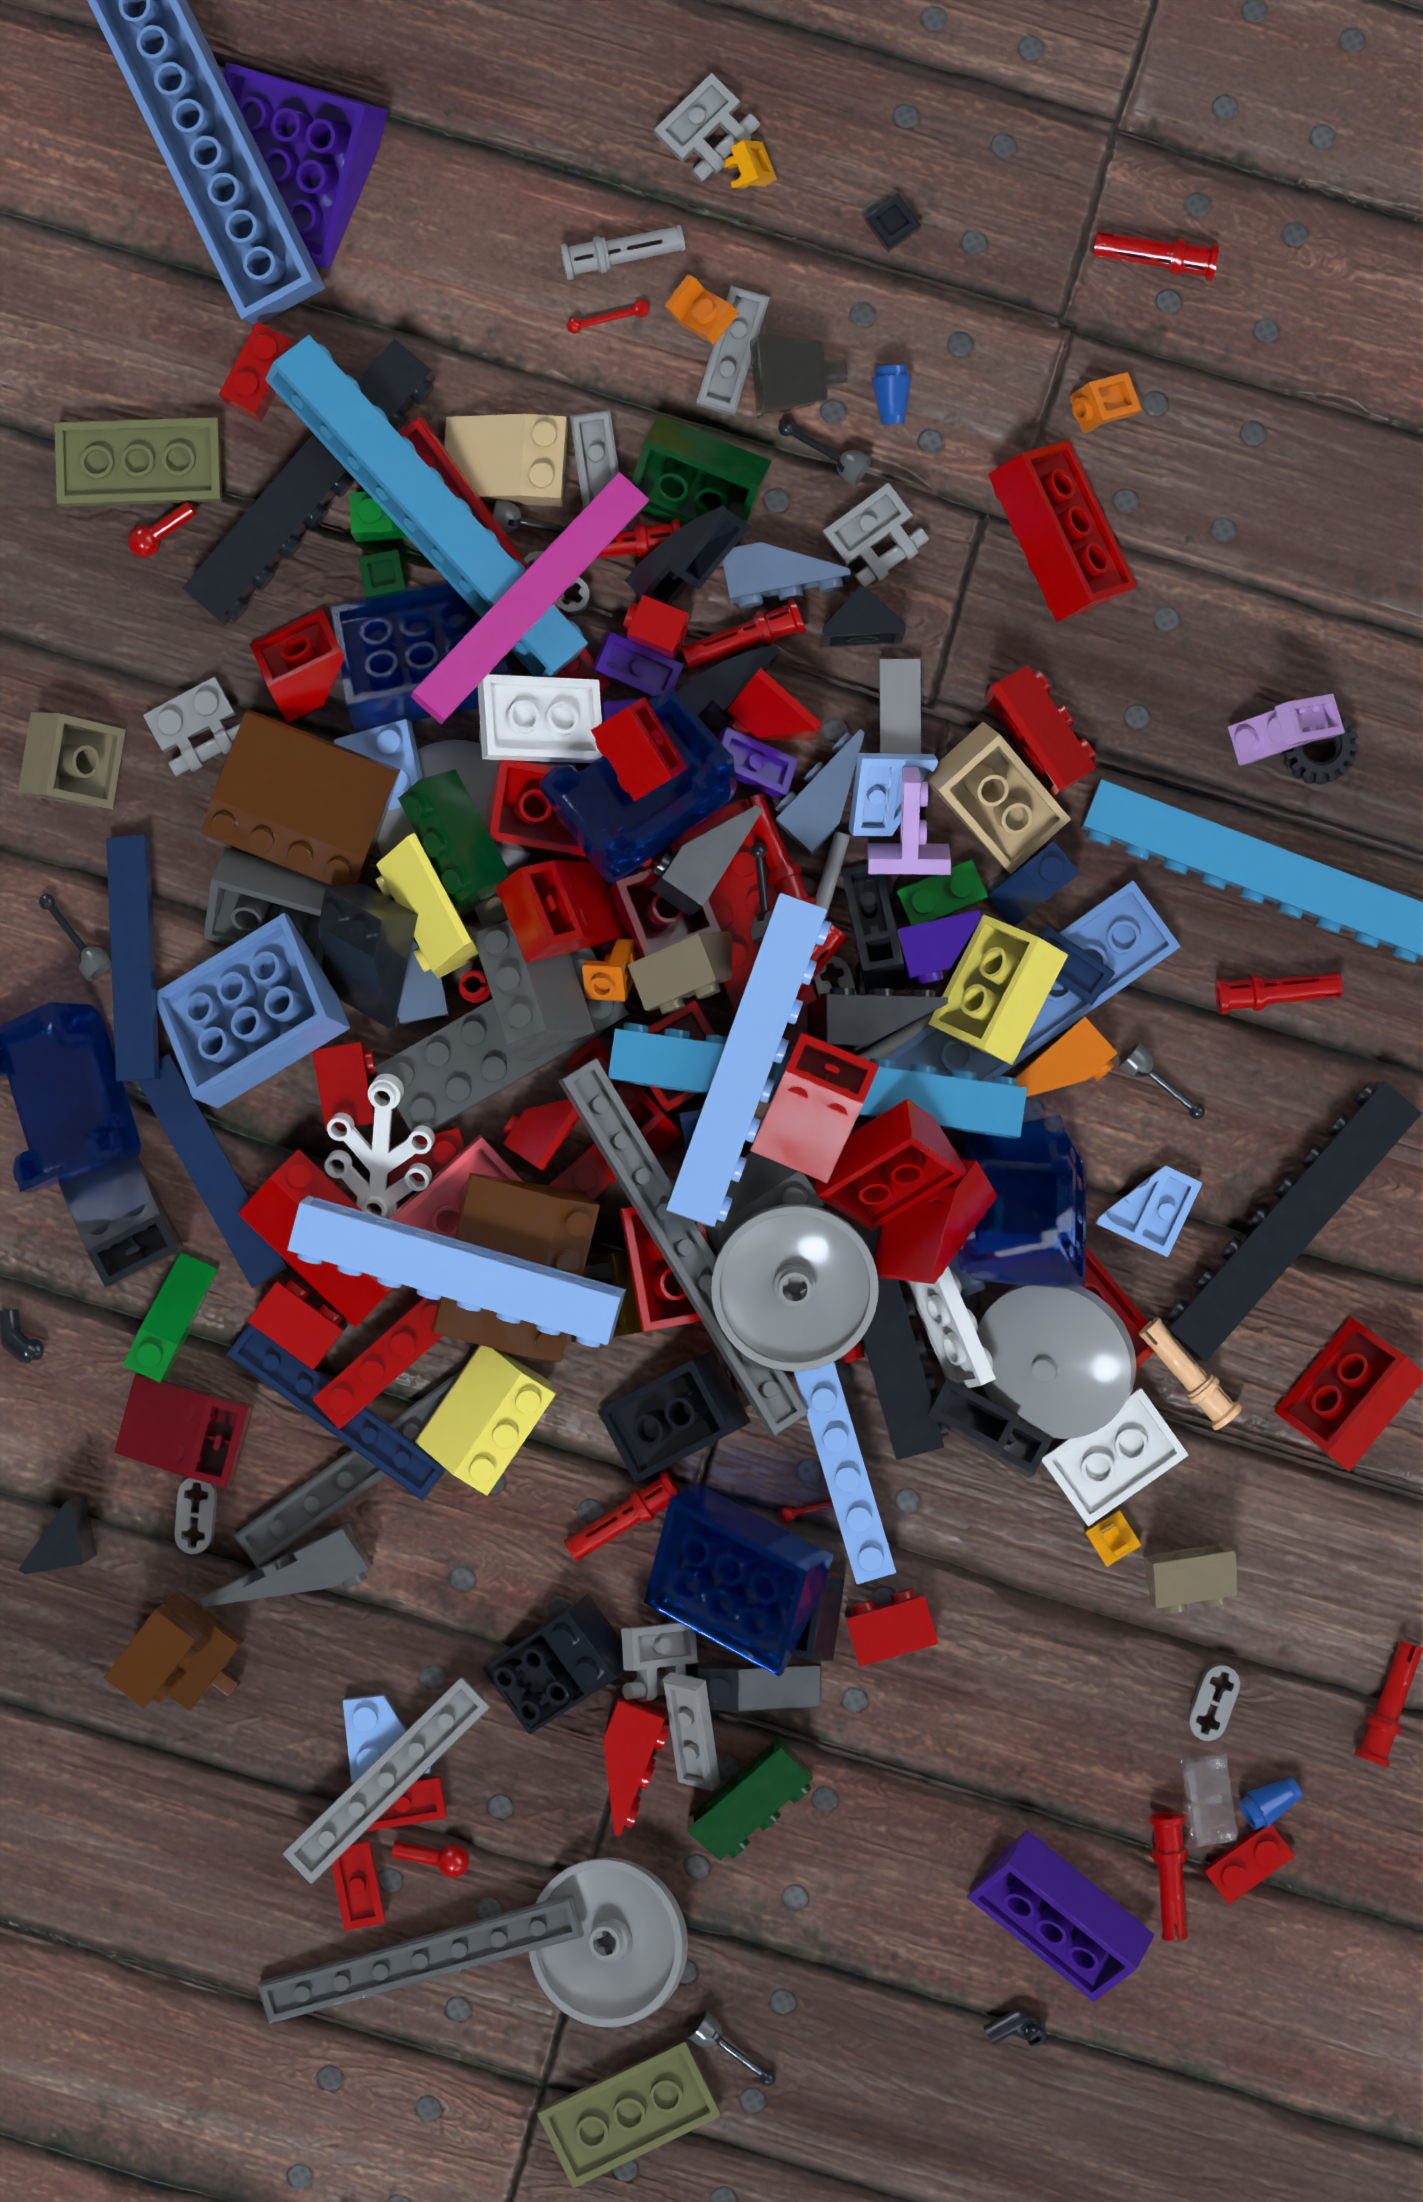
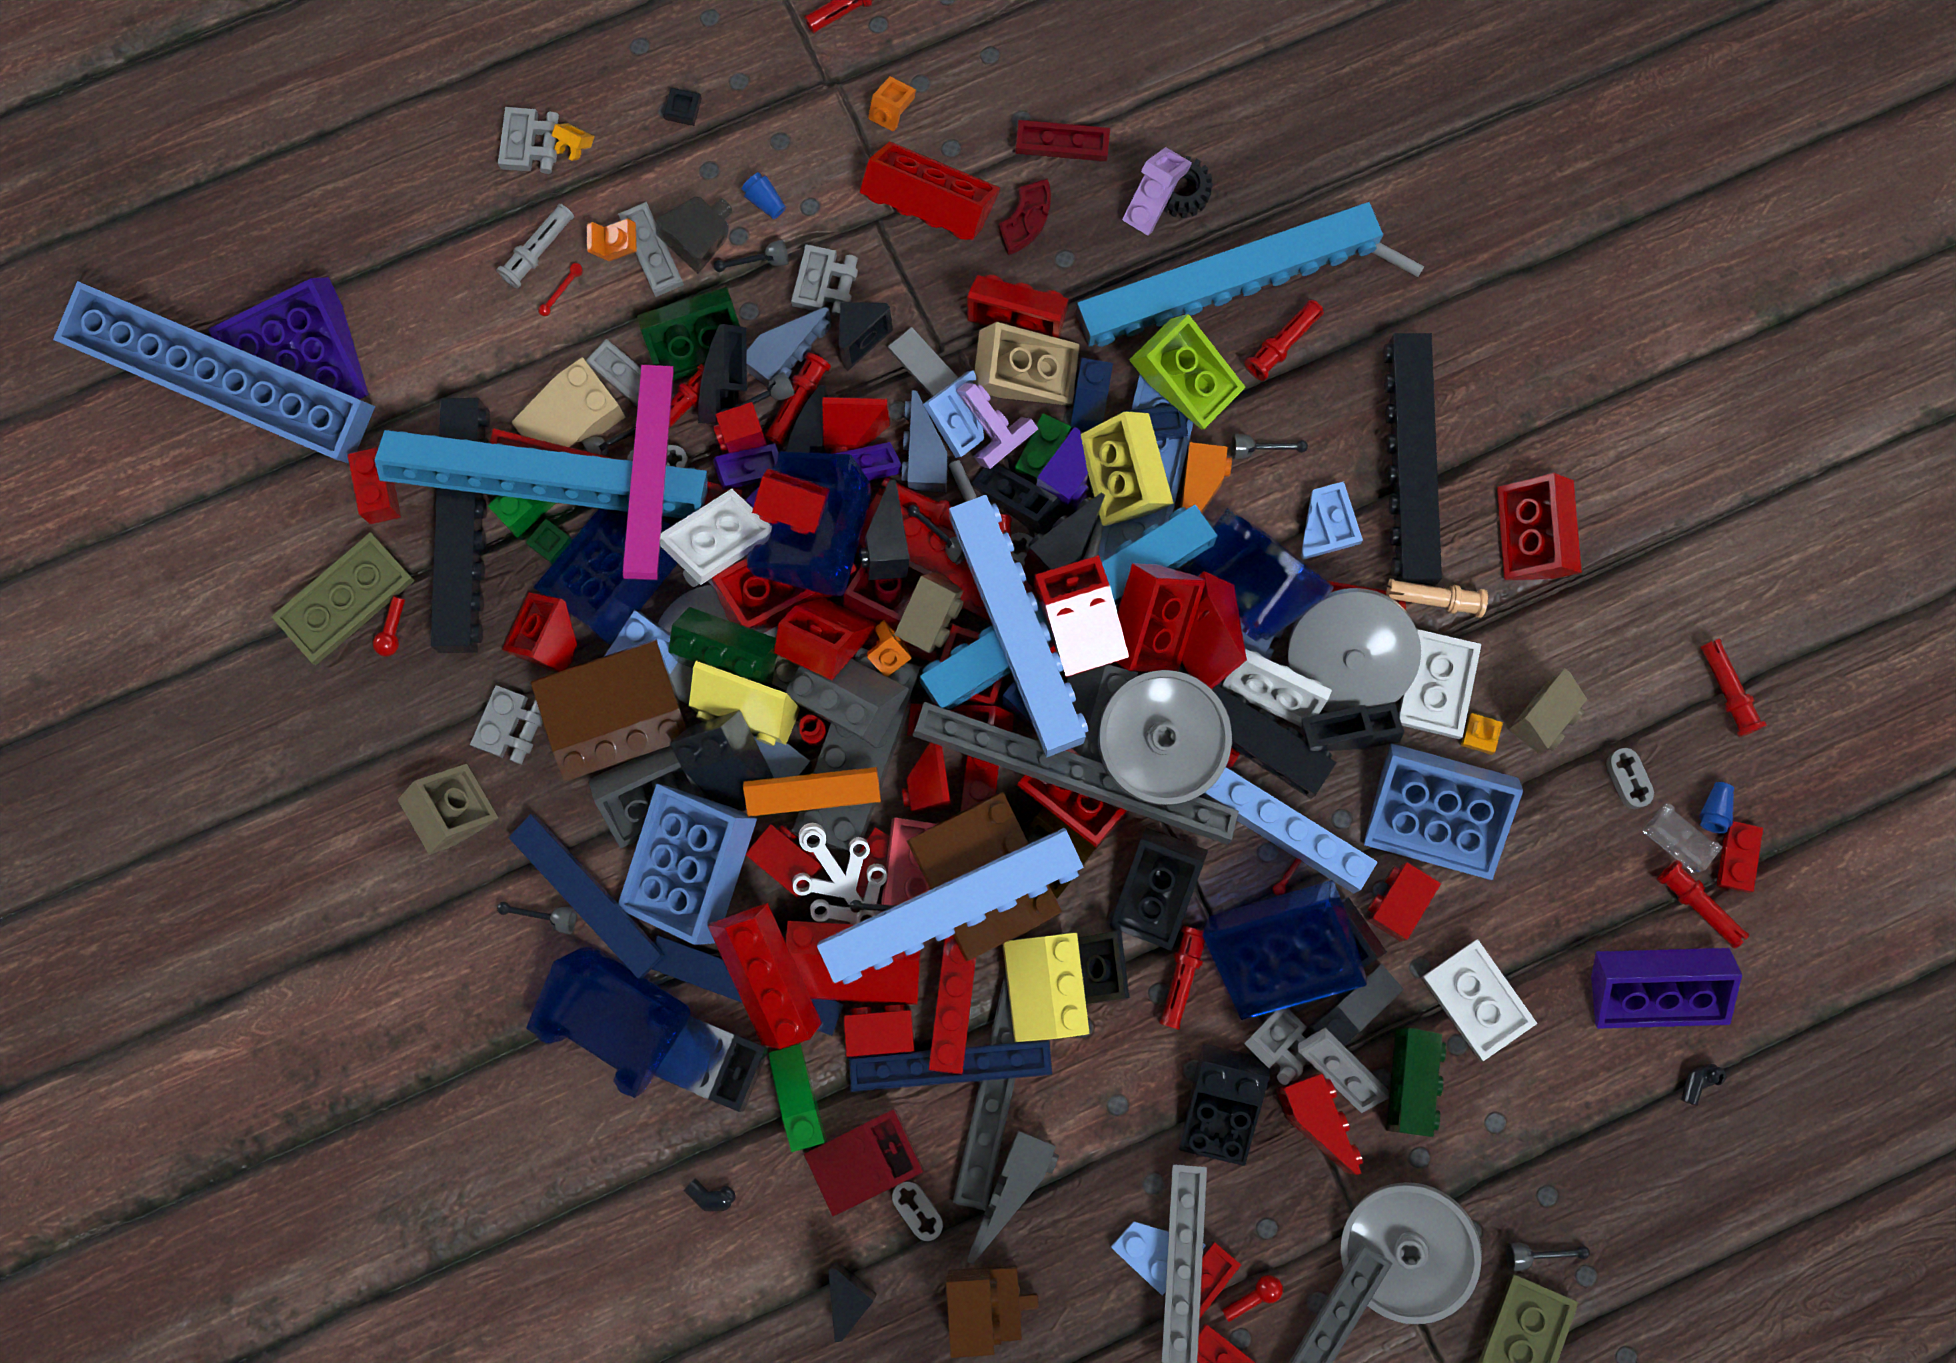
camera: 45 degrees left, 10 degrees down
(233, 1185) = (766, 977): none -> red slope
(374, 1189) = (856, 906): none -> black hinge
(421, 1049) = (812, 791): none -> orange tile
(555, 1444) = (1103, 967): none -> black slope
(731, 613) = (778, 388): none -> dark grey hinge
(879, 1777) = (1479, 1000): none -> white plate
(1006, 1577) = (1442, 811): none -> medium blue slope
(1138, 643) = (1028, 218): none -> dark red tile
(1146, 944) = (1188, 371): none -> lime slope
(1241, 592) = (1062, 140): none -> dark red plate

